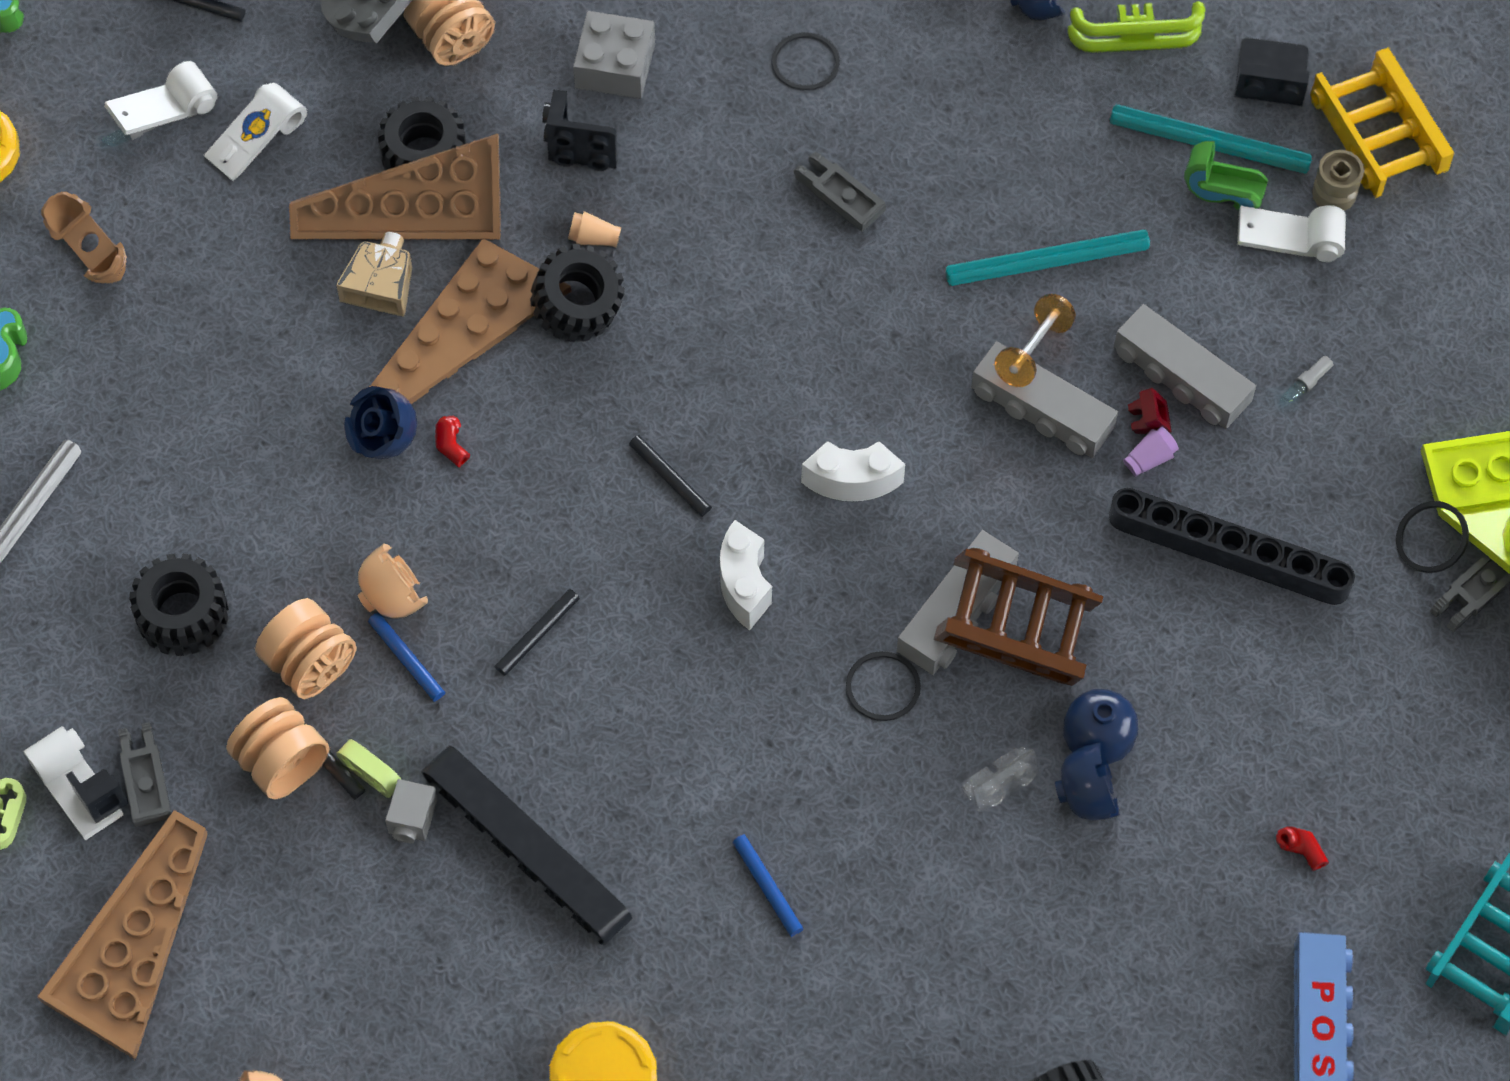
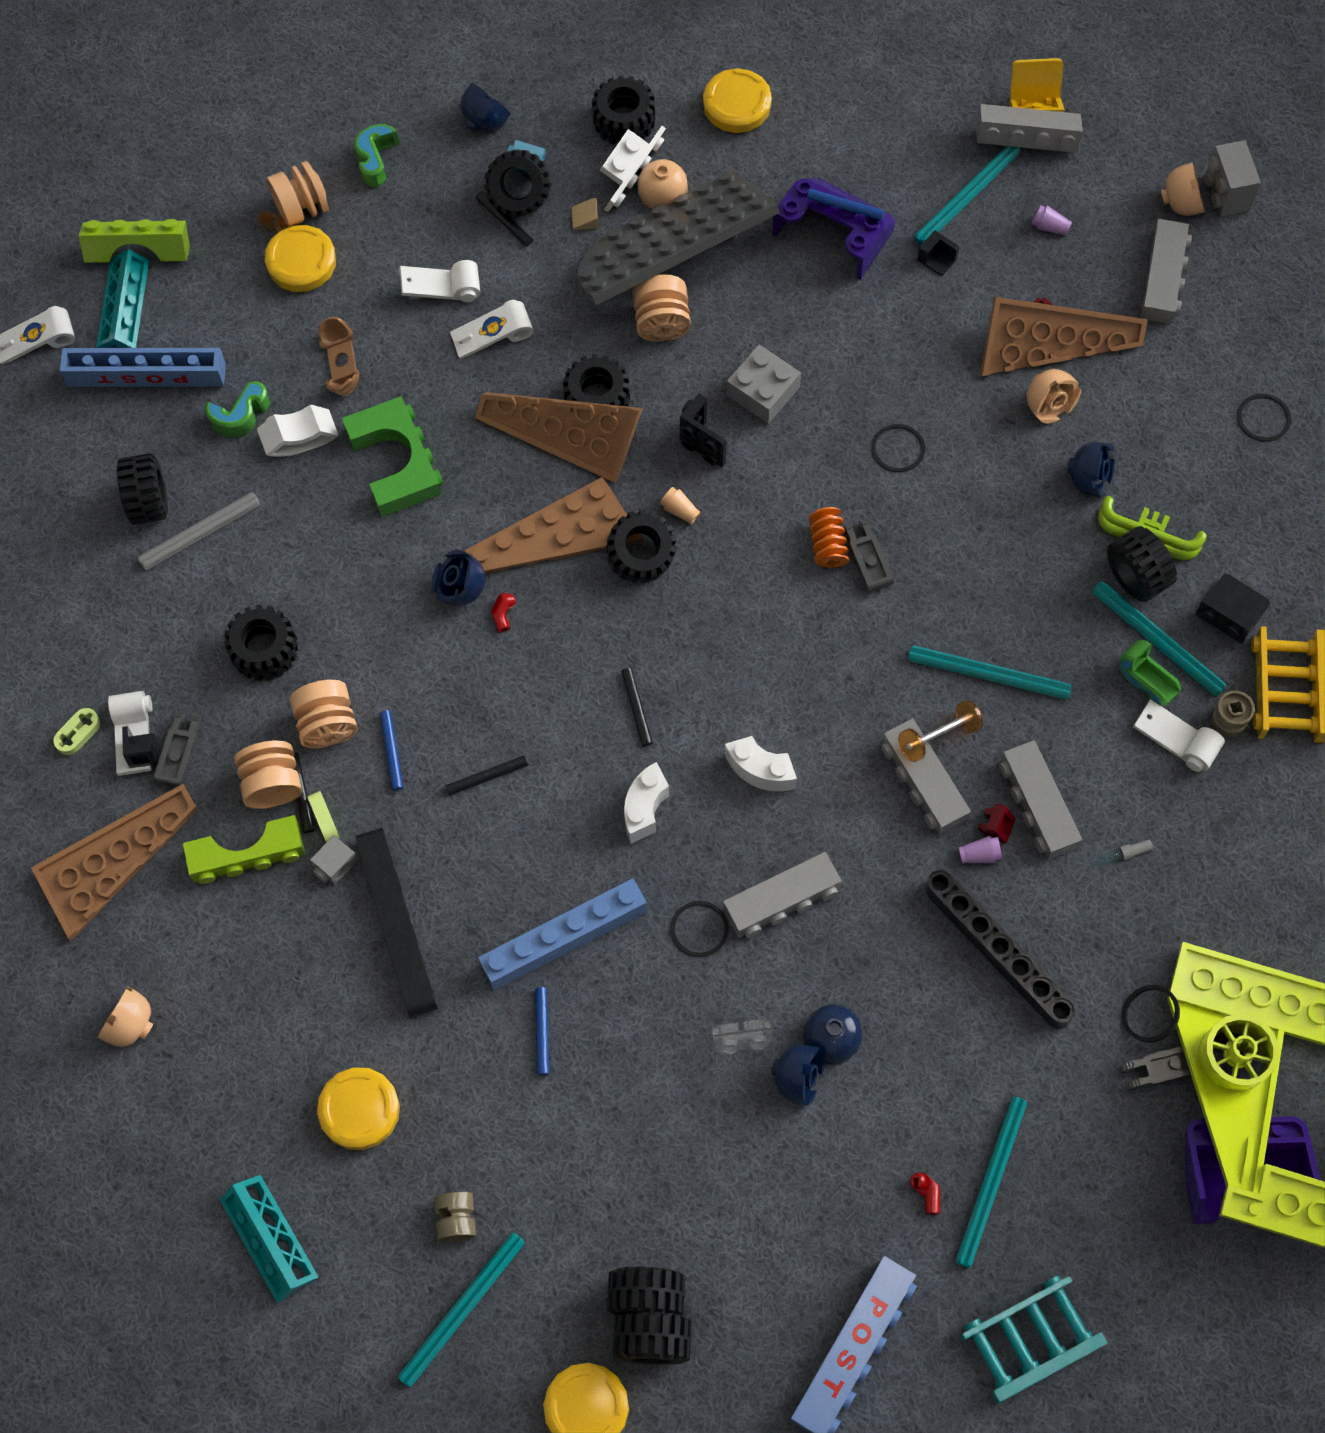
camera: 30 degrees right, 5 degrees up
(83, 345) = (297, 431): none -> white brick
(200, 283) = (394, 422): none -> bright green arch
(258, 880) = (279, 842): none -> lime arch
(378, 276) = (517, 471): tan torso -> none
(388, 585) = (401, 691): light nougat cylinder -> none
(732, 764) = (563, 934): none -> medium blue brick
(786, 190) = (828, 537): none -> orange piece
(994, 641) = (787, 937): reddish brown fence -> none
(1152, 63) = (1141, 564): none -> black tyre
(1364, 801) = (991, 1182): none -> teal axle

